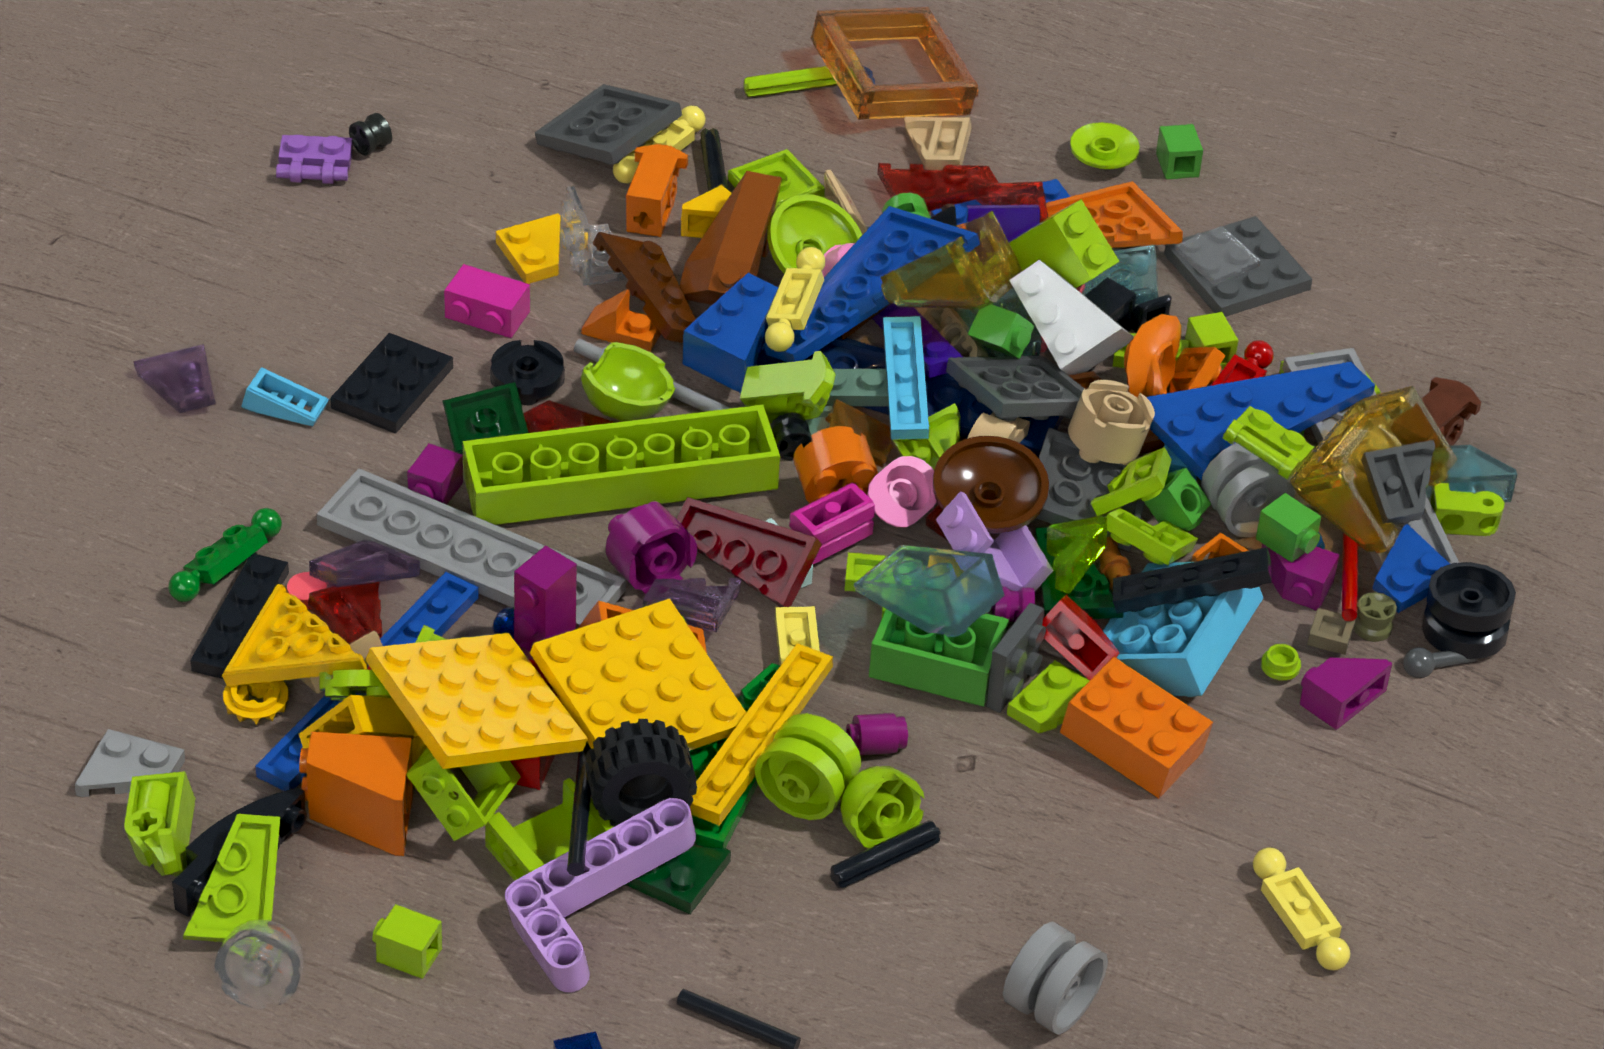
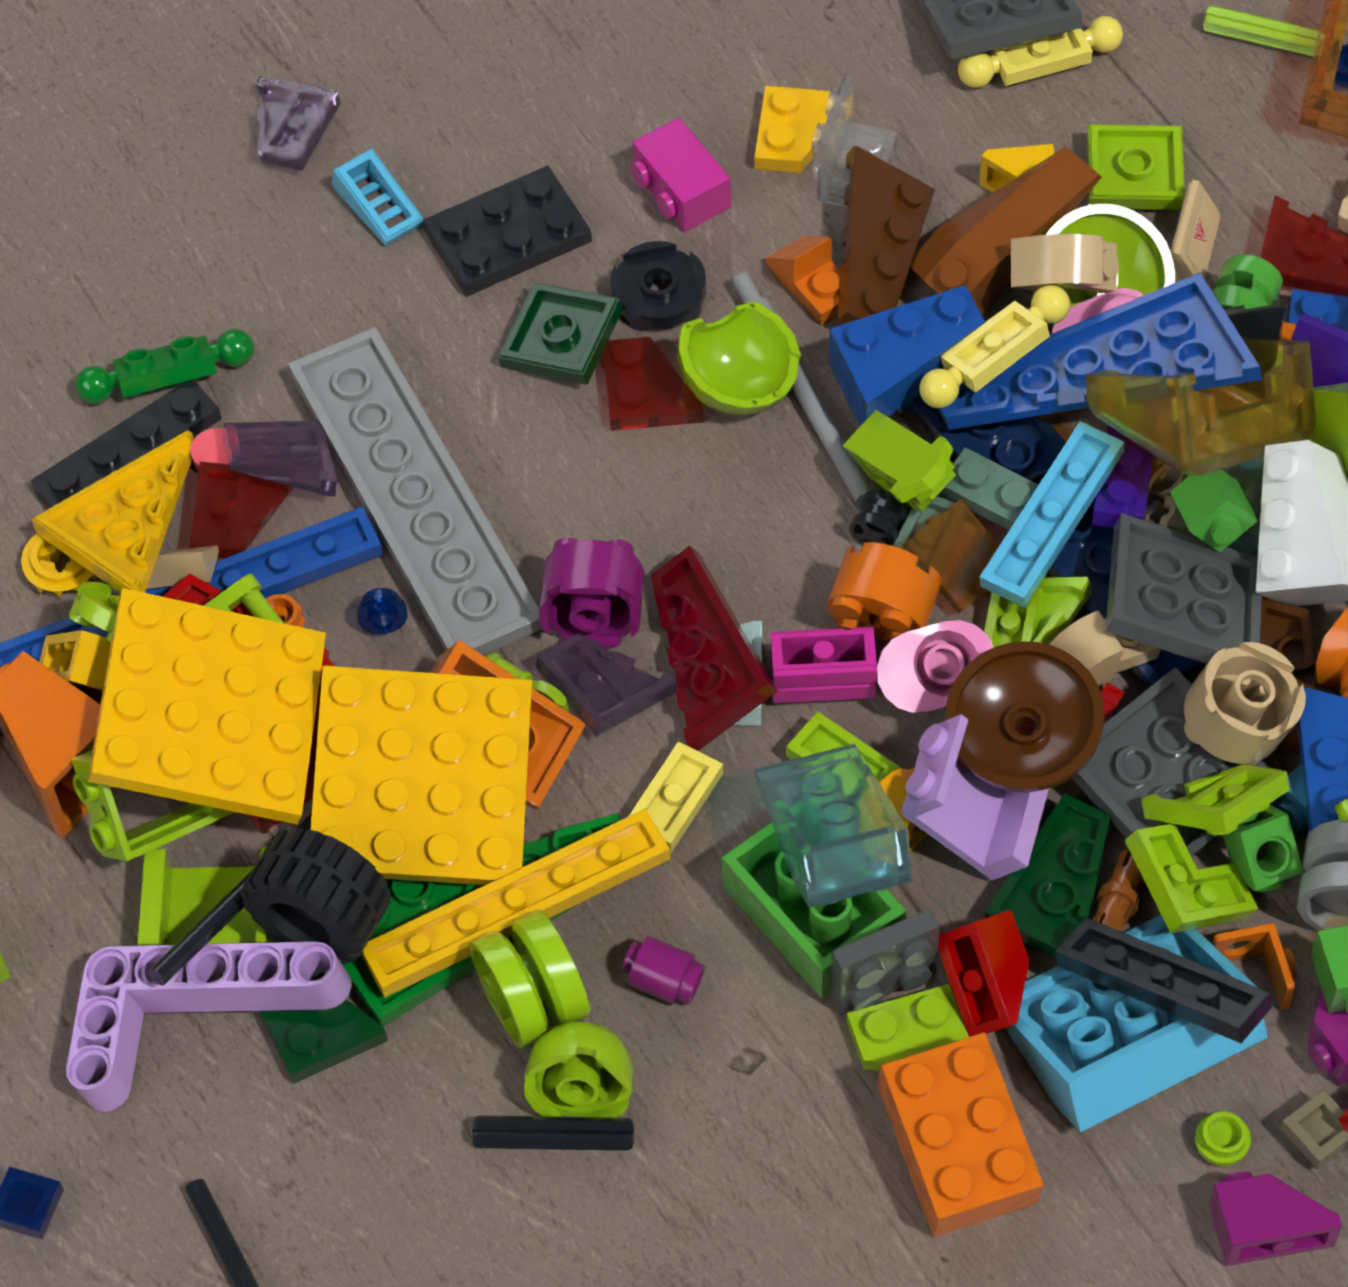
camera: 40 degrees right, 15 degrees up
(436, 473) = (448, 378): magenta brick -> none
(544, 598) = (393, 615): magenta brick -> none
(620, 465) = (651, 466): lime brick -> none
(653, 188) = (977, 111): orange piece -> none
(713, 158) = (1087, 103): black axle -> none
(795, 232) = (1064, 261): none -> tan brick
(1013, 603) = (951, 884): magenta wheel -> none
(1075, 548) = (1080, 854): clear neon green slope -> none

